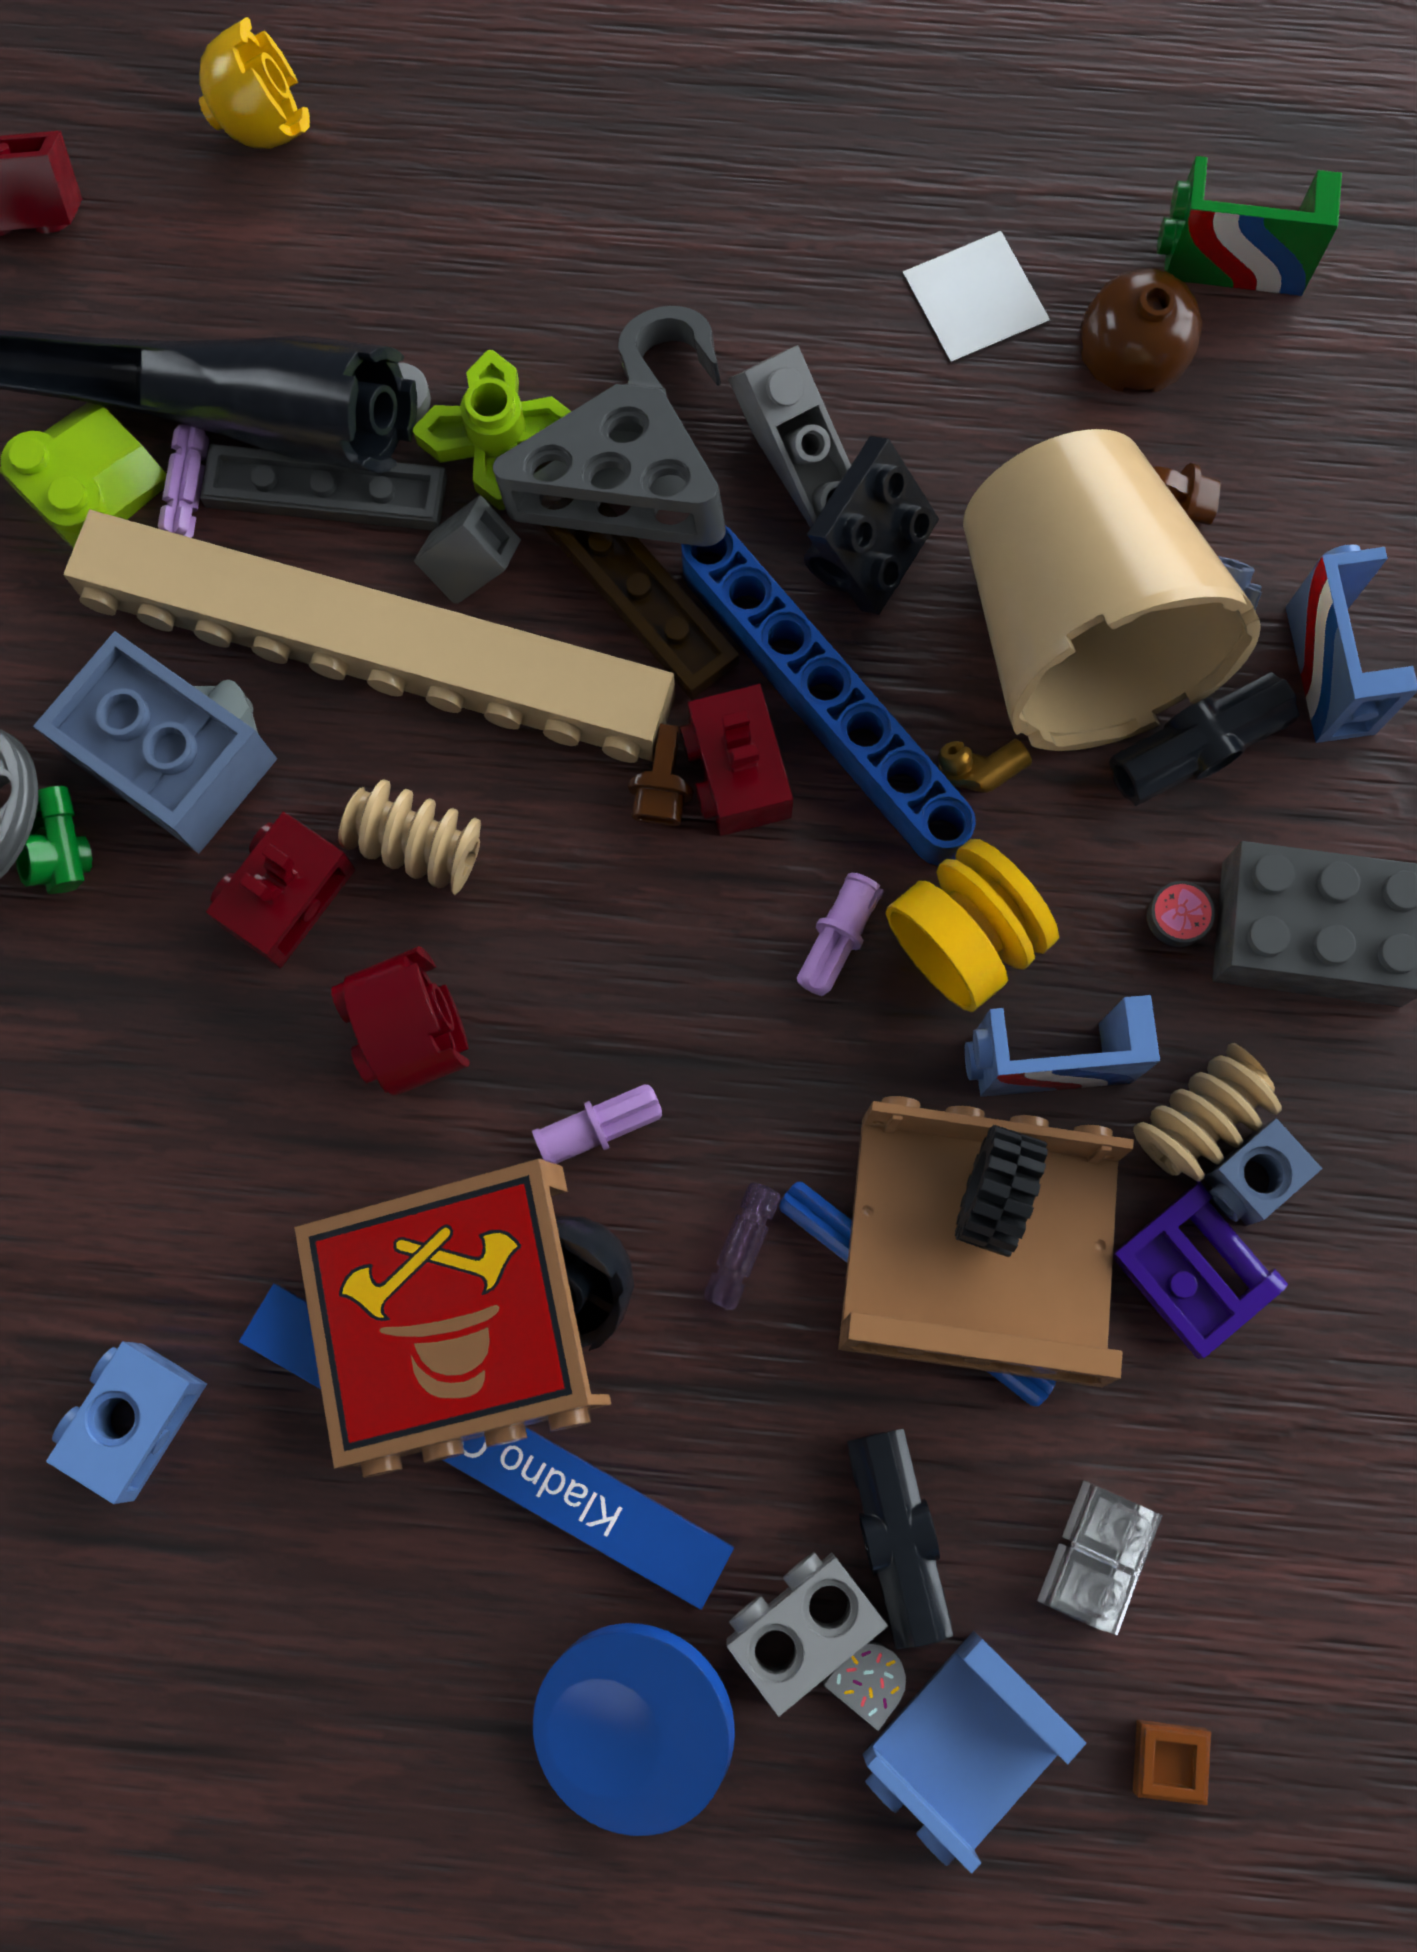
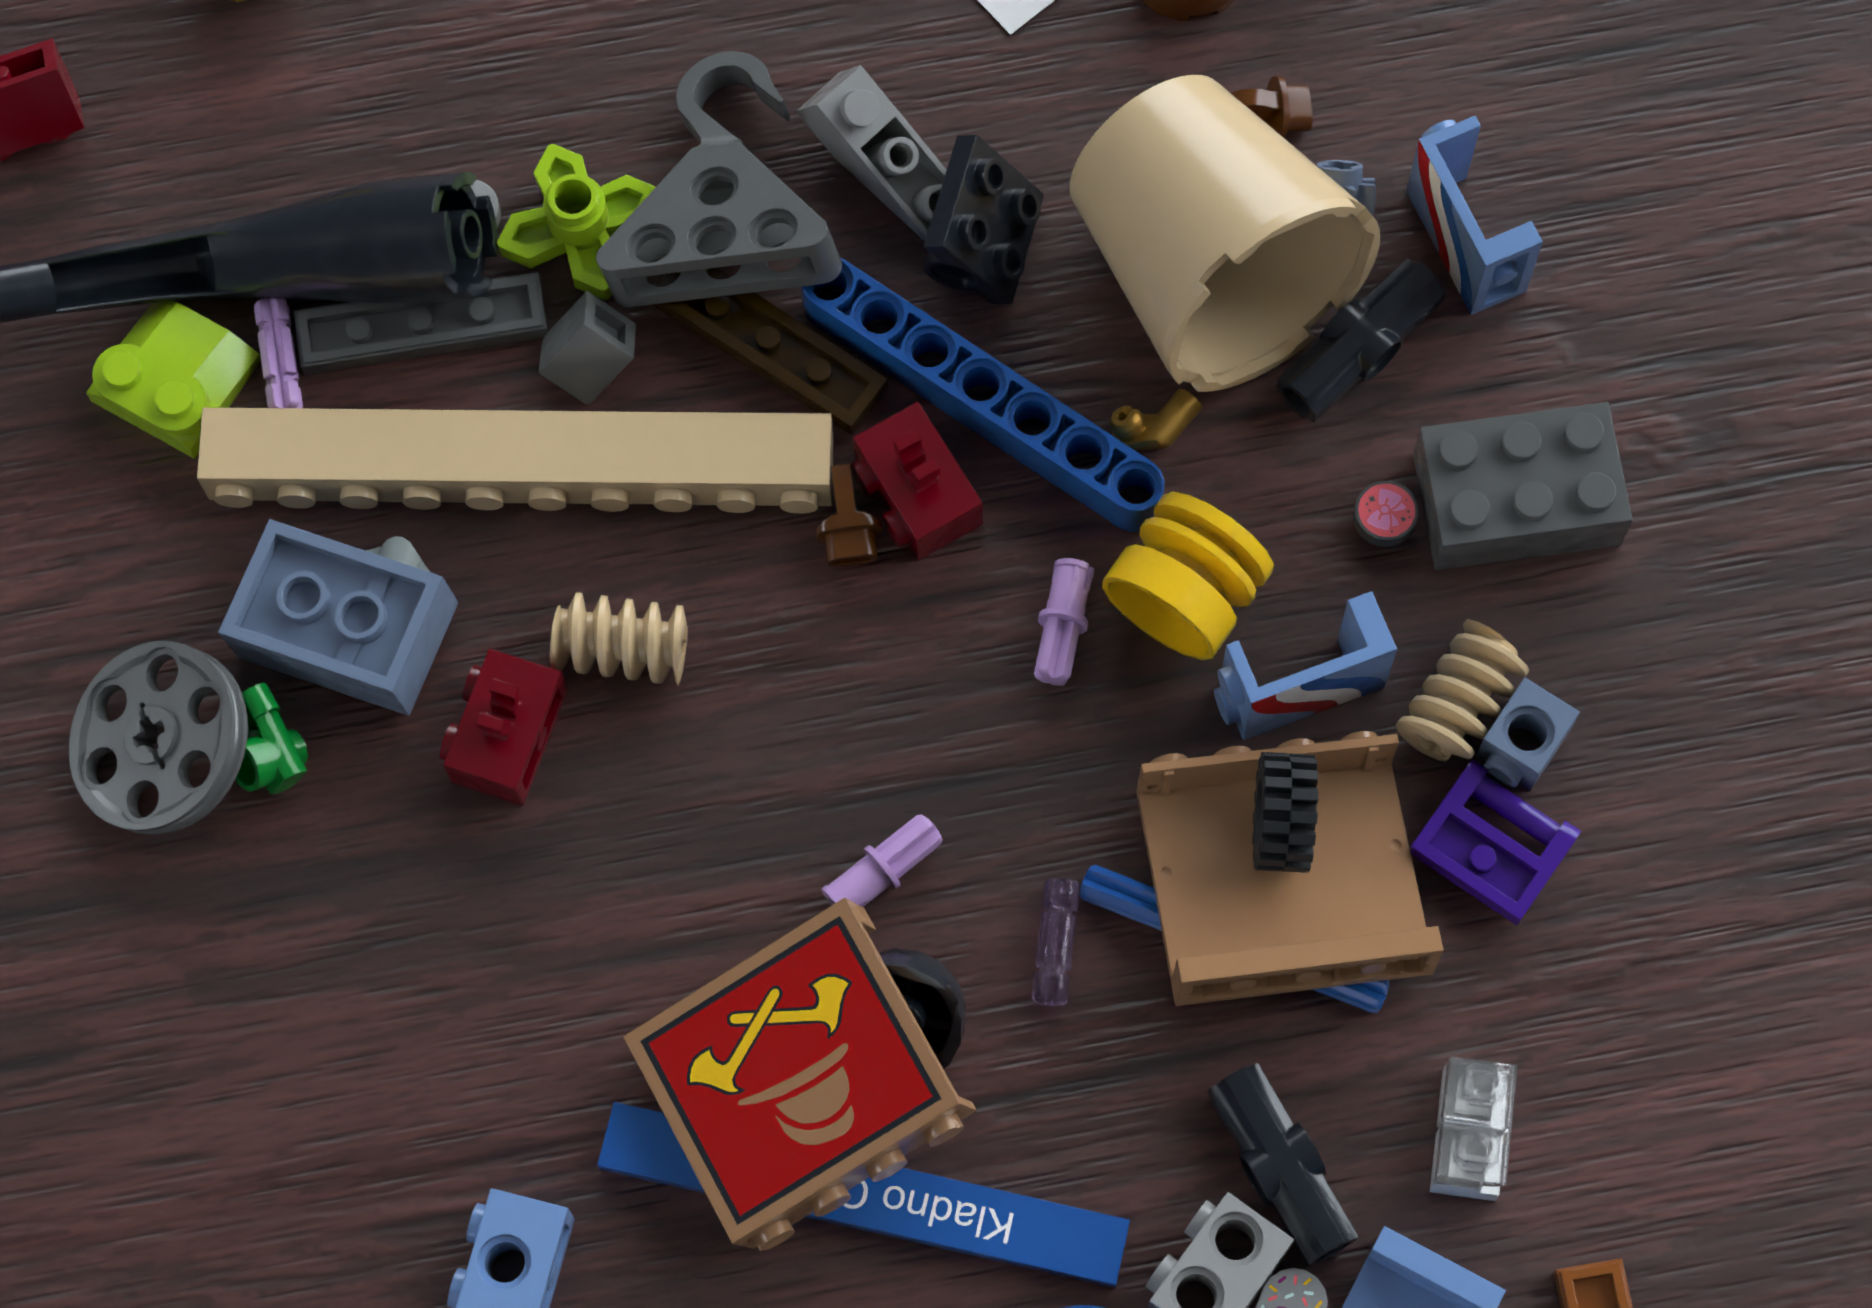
camera: 15 degrees left, 5 degrees down
(402, 1023) = (670, 815): dark red brick -> none

